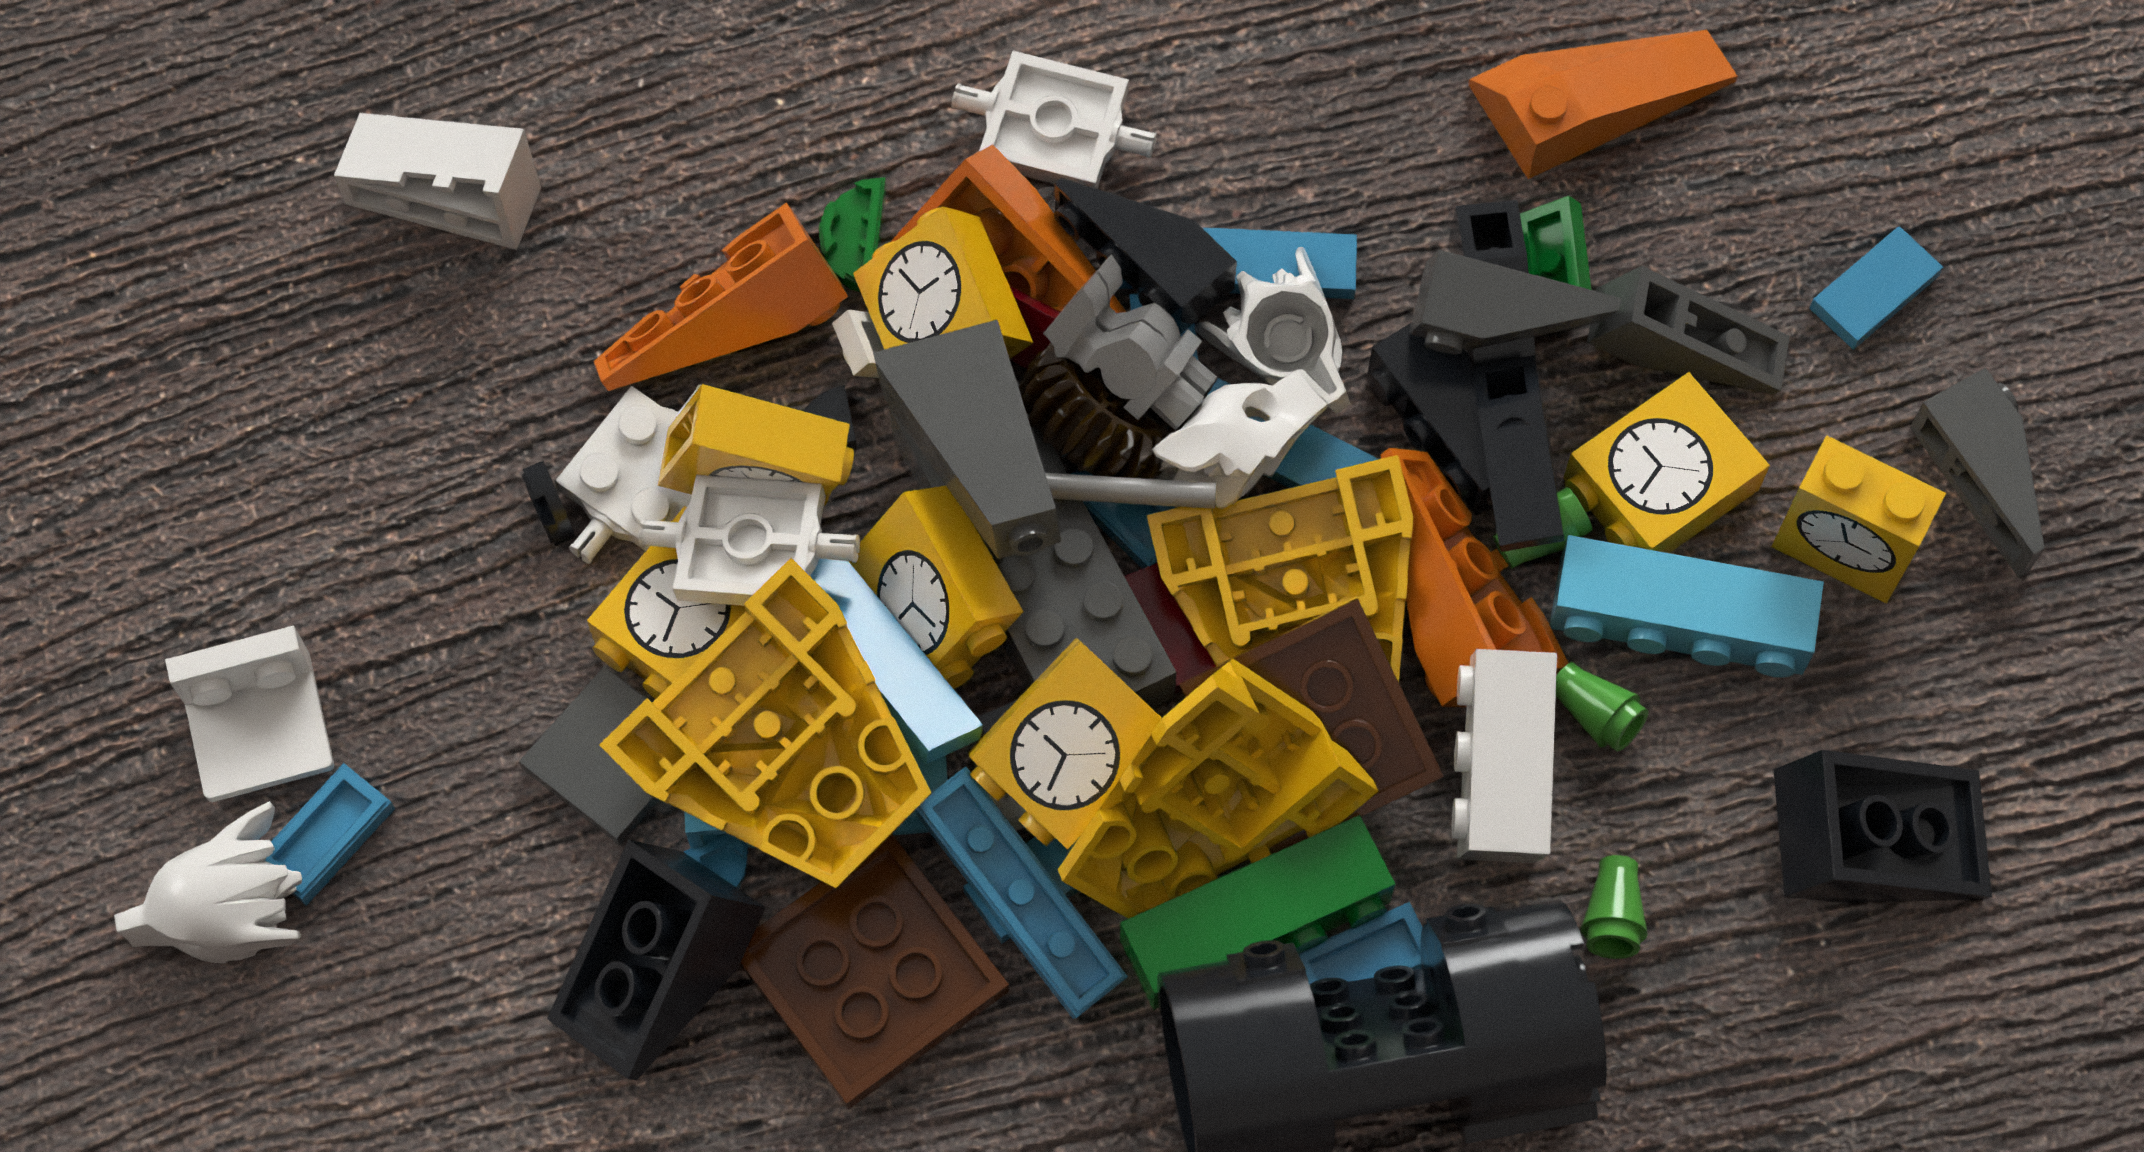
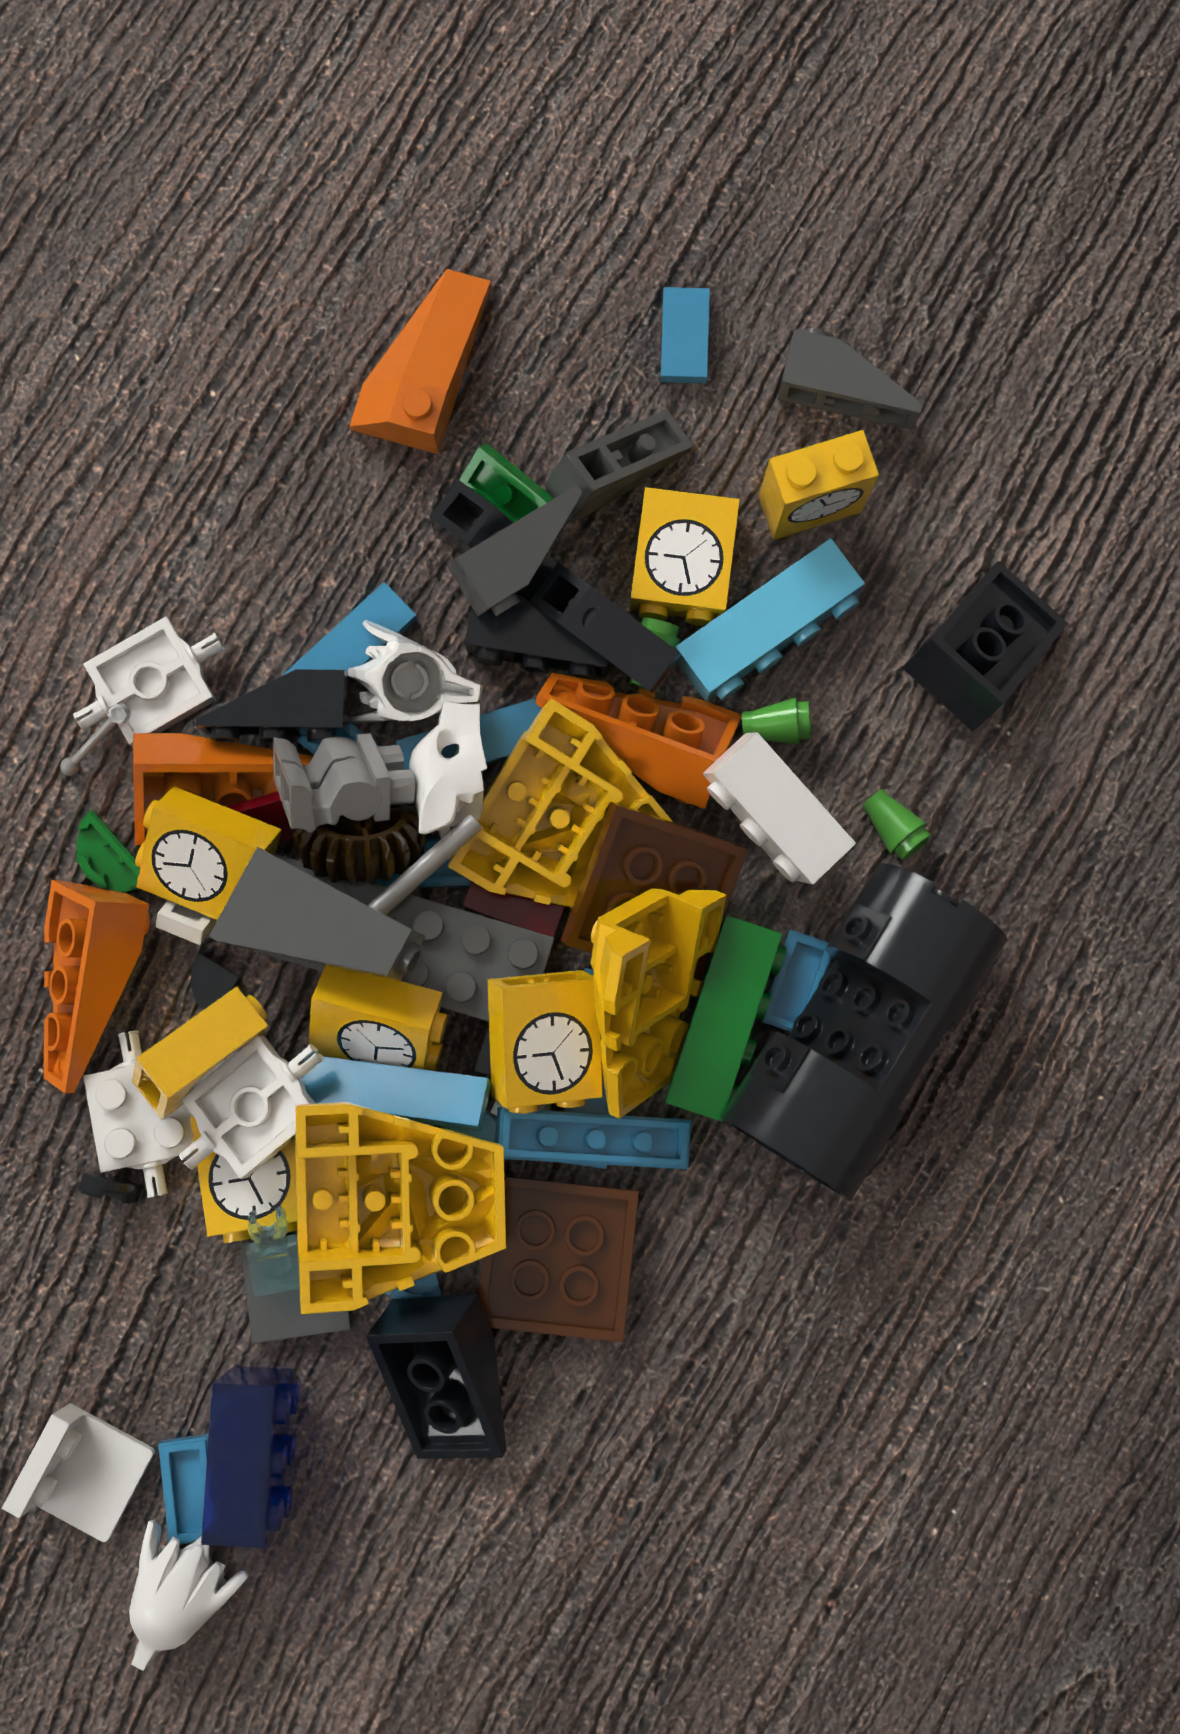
camera: 45 degrees left, 15 degrees up
(414, 840) = (249, 1456): none -> clear blue brick
(621, 690) = (272, 1255): none -> clear light blue plate
(996, 116) = (117, 714): none -> light grey hinge

